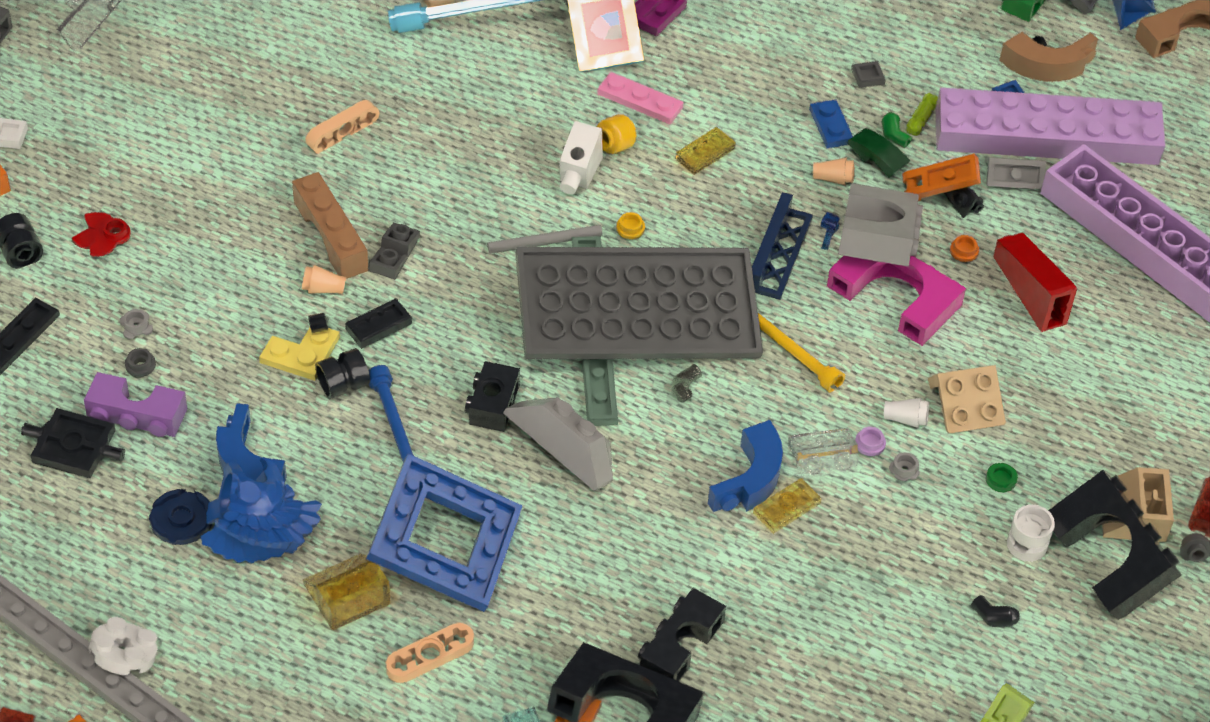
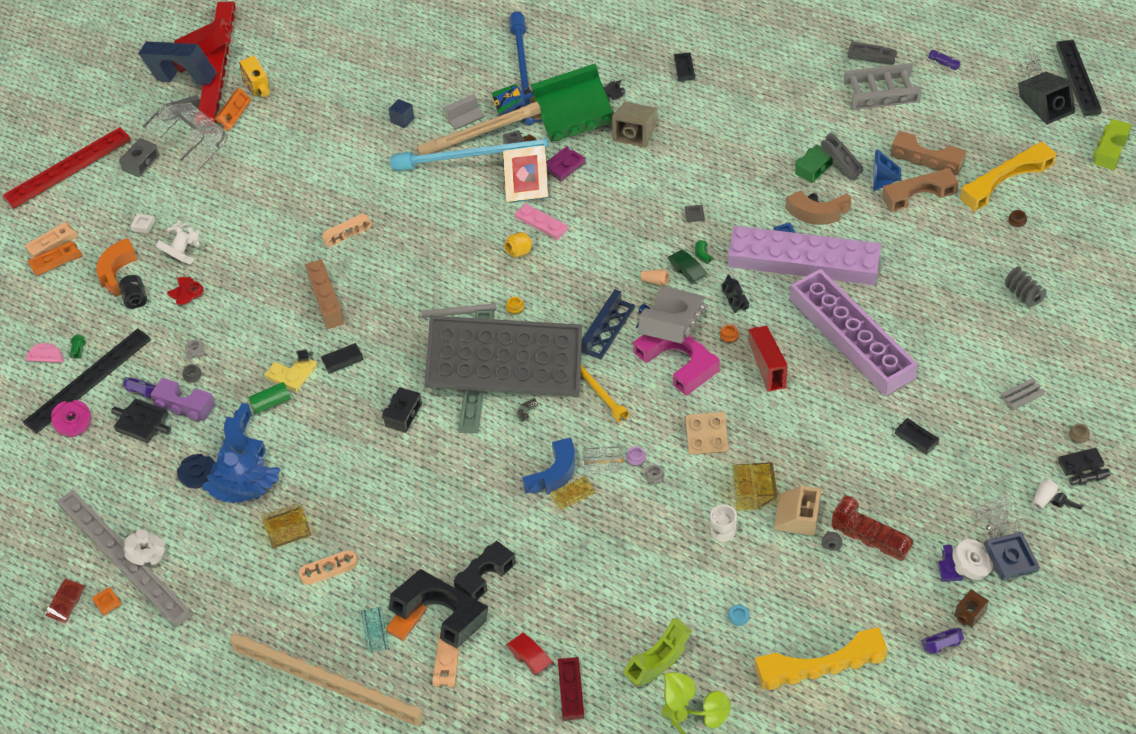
camera: 15 degrees right, 0 degrees up
(49, 387) = (138, 385): none -> plate
(81, 158) = (180, 242): none -> white piece
(277, 392) = (269, 398): none -> green brick
(322, 281) = (312, 329): light nougat cone -> none
(345, 372) = (311, 388): black wheel -> none
(381, 382) = (335, 394): blue piece -> none
(394, 250) = (363, 311): dark grey slope -> none
(394, 551) = (342, 459): plate -> none
(566, 437) = (441, 439): light grey wedge -> none
(579, 166) = (490, 259): white torso -> none
(705, 150) = (574, 258): clear yellow plate -> none
(830, 123) = (661, 244): blue plate -> none
(909, 411) = (665, 438): white cone -> none
(921, 114) = (722, 243): lime axle -> none
(943, 176) = (722, 285): orange plate -> none
(995, 615) = (690, 574): black arm -> none
(1001, 477) = (716, 485): green tile -> none
(1015, 173) = (774, 284): light grey panel -> none
(1057, 468) = (753, 485): none -> clear yellow slope
(1084, 672) = (738, 615): none -> medium azure tile
(1148, 565) = (791, 549): black arch -> none

